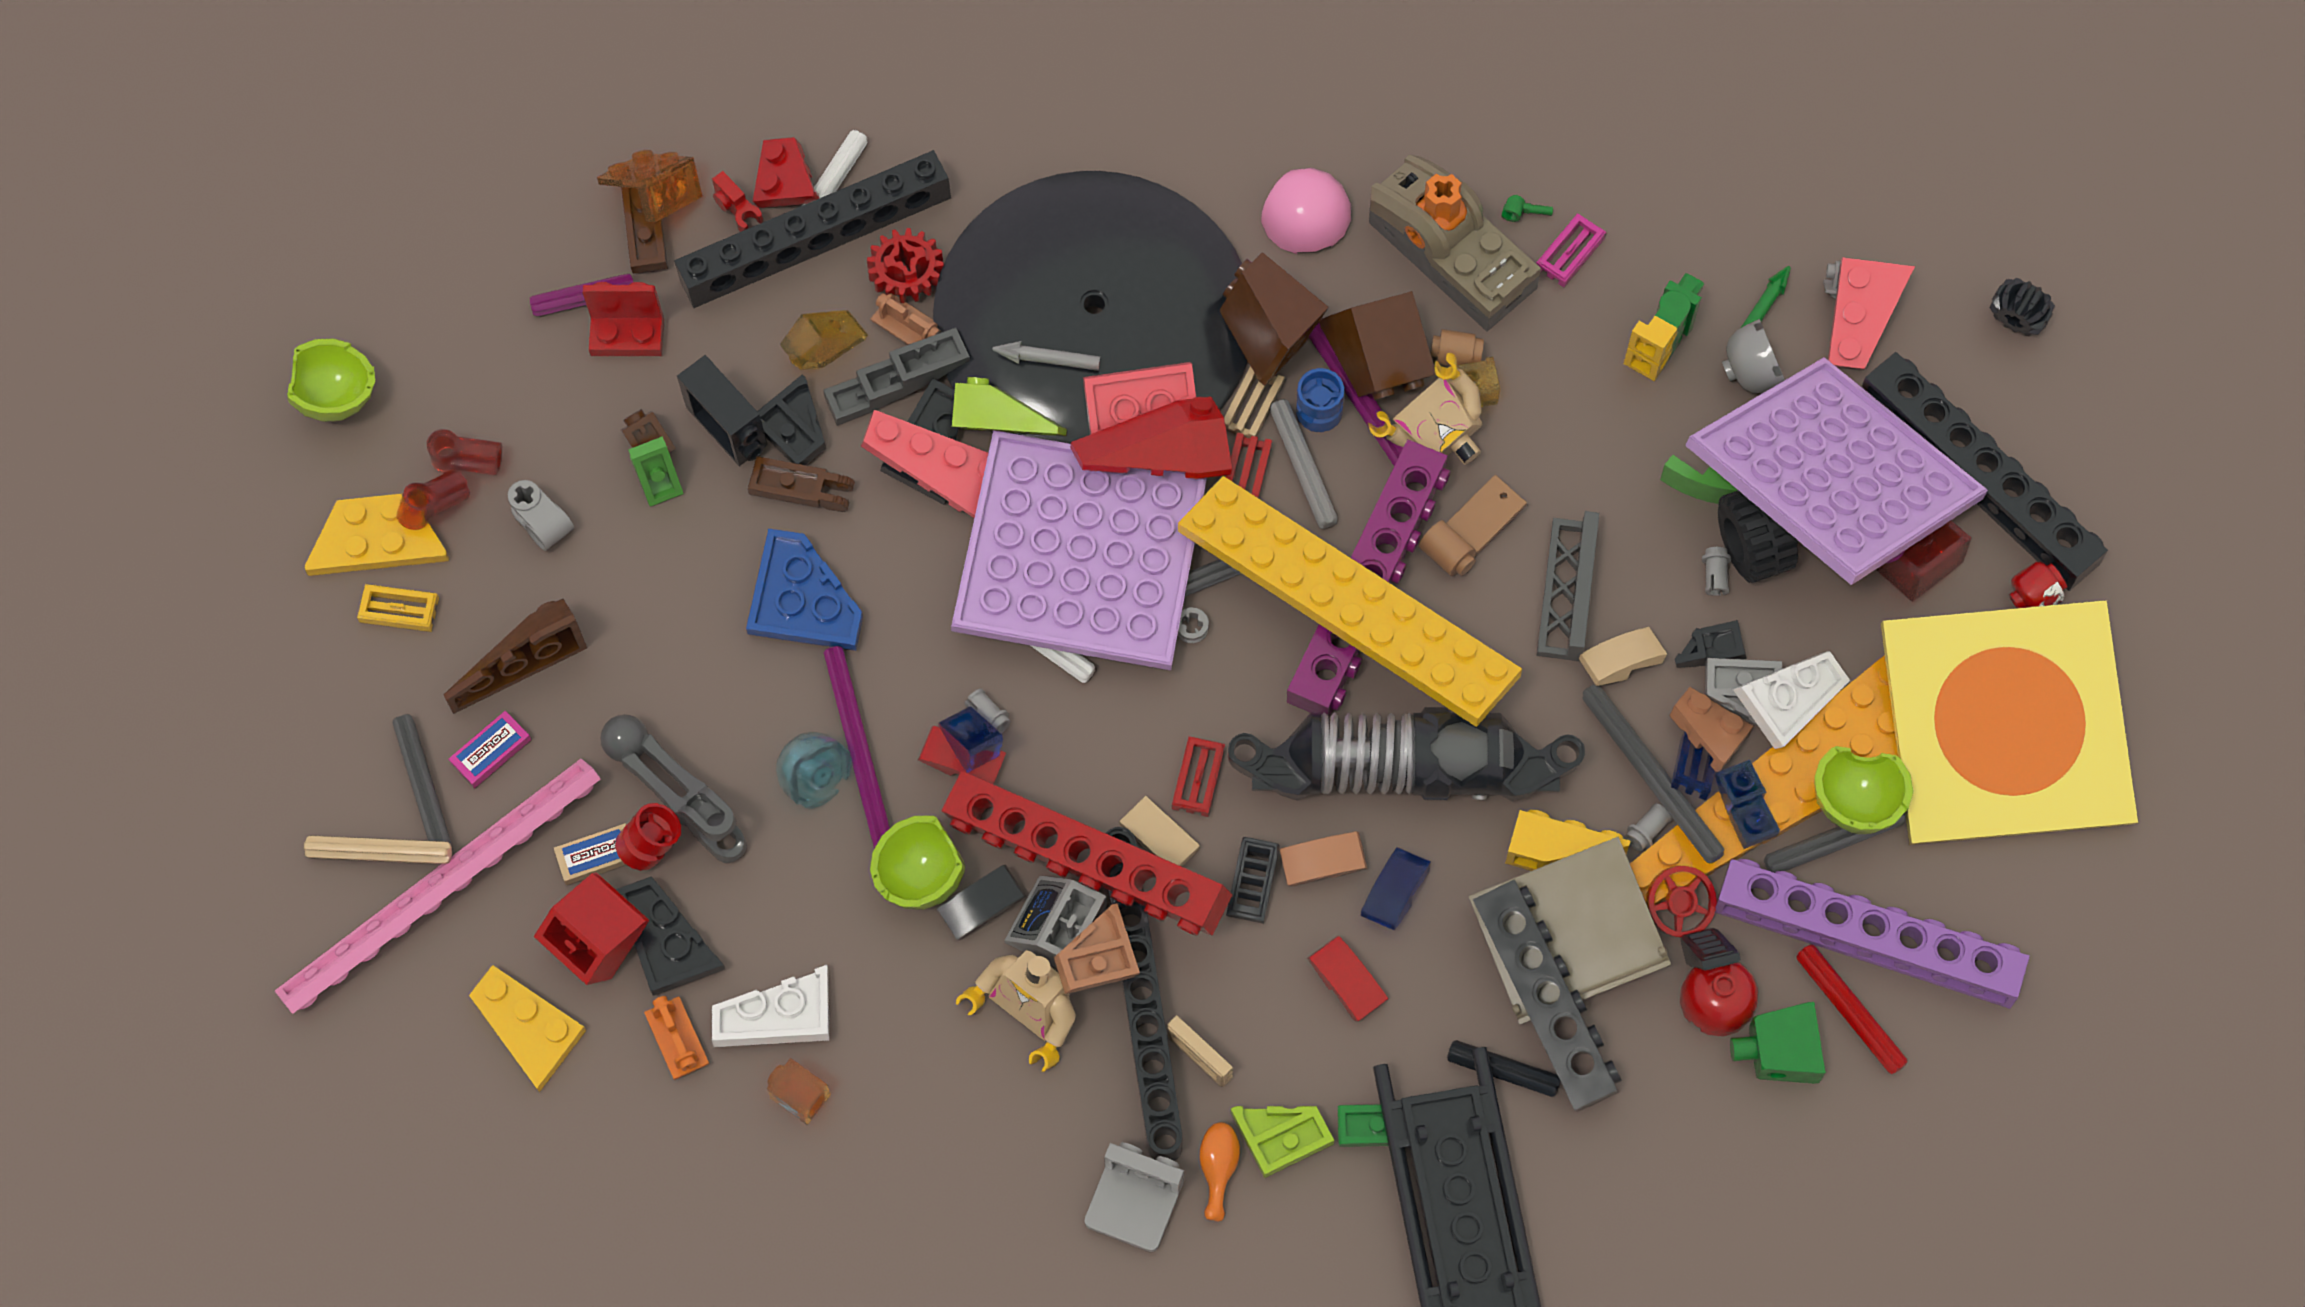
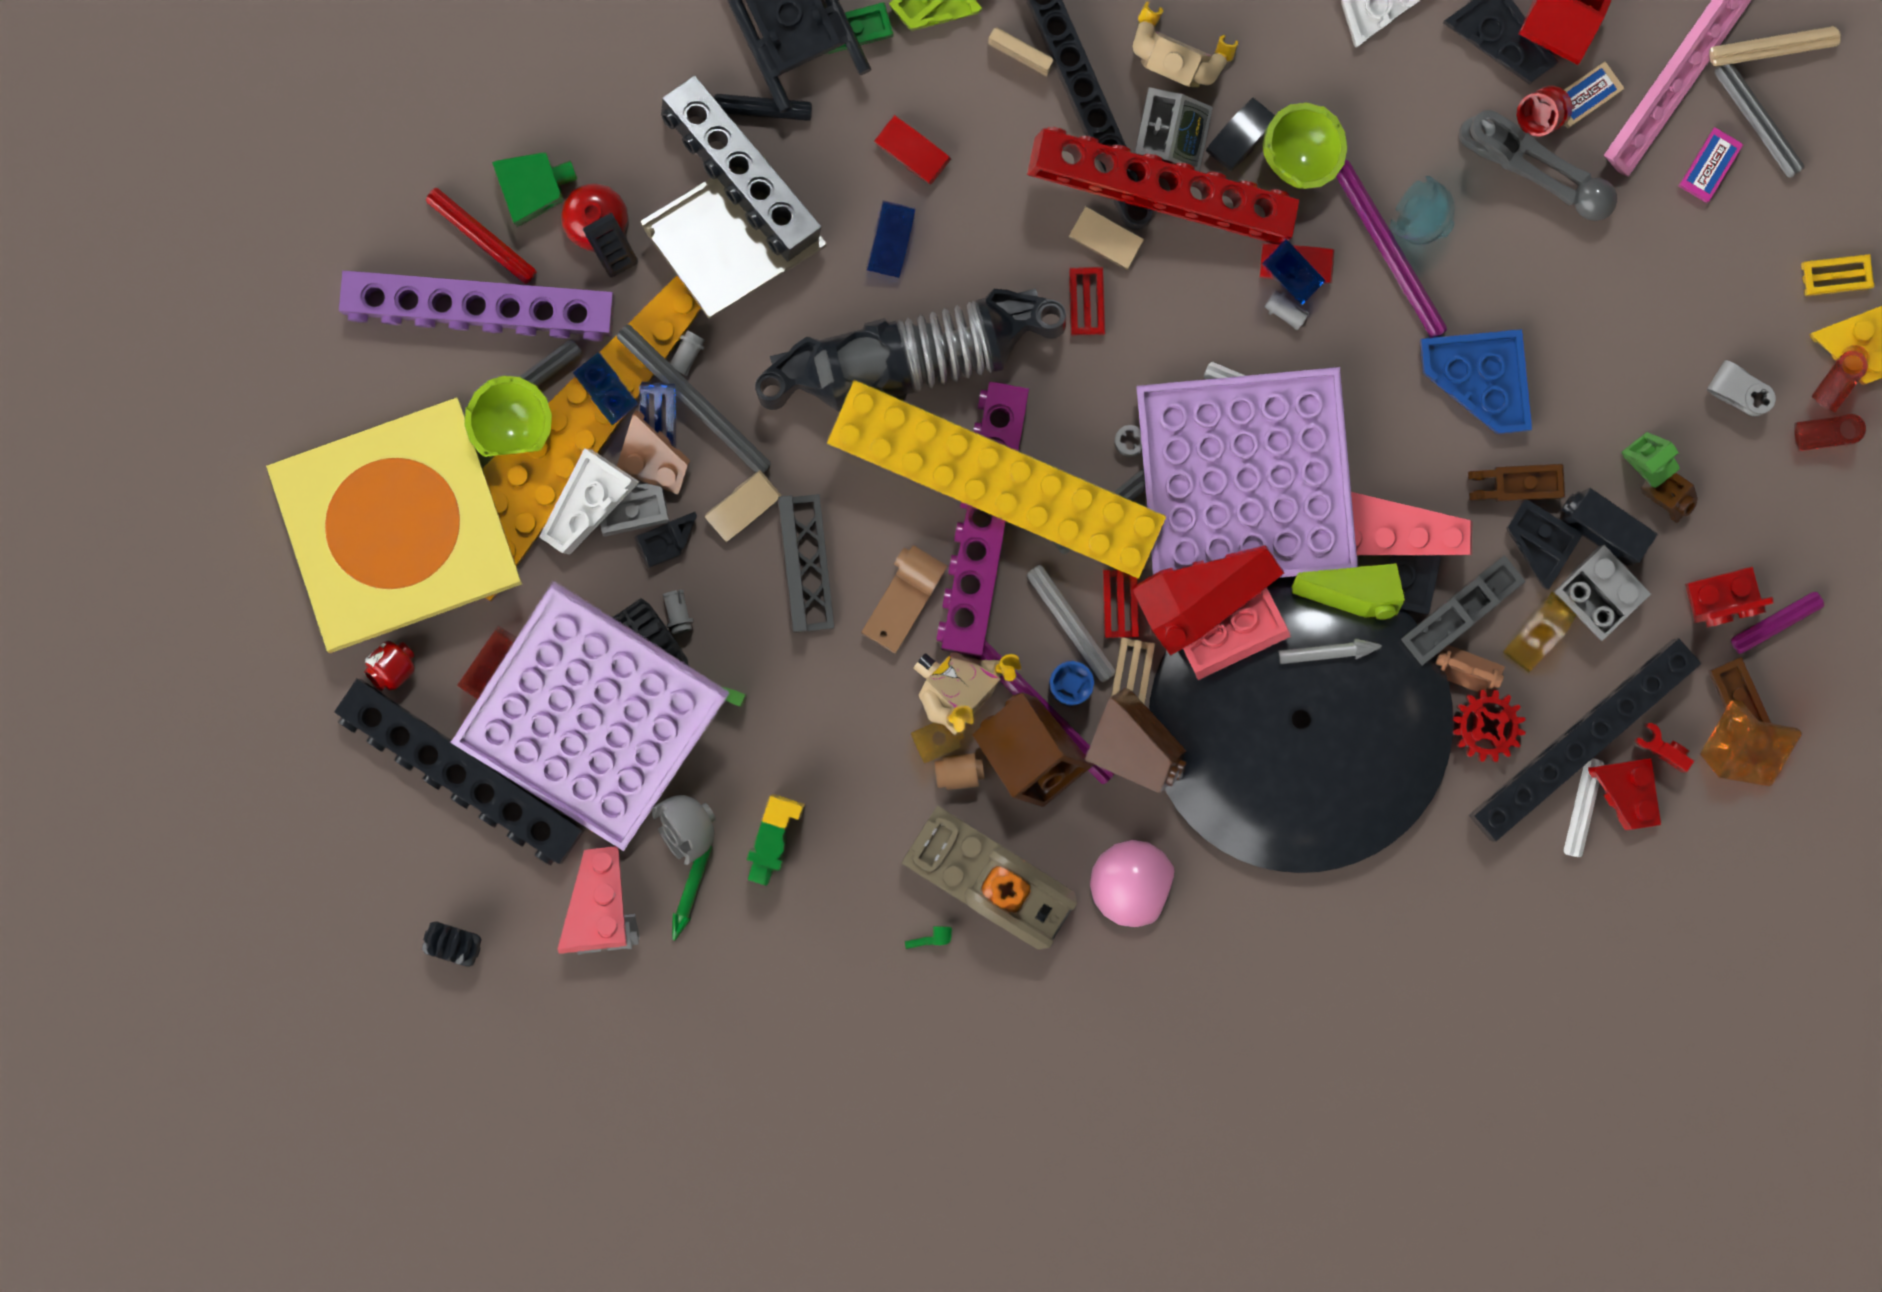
camera: 160 degrees right, 20 degrees up
(532, 646) = (1703, 268): reddish brown wedge -> none
(752, 354) = (1602, 592): none -> light grey slope
(1097, 954) = (1128, 97): nougat wing -> none
(1261, 849) = (1015, 244): black slope -> none
(1323, 858) = (959, 249): nougat slope -> none
(1543, 840) = (765, 312): yellow slope -> none
(1554, 271) = (889, 881): dark pink tile -> none
(1681, 900) = (644, 291): red wheel -> none

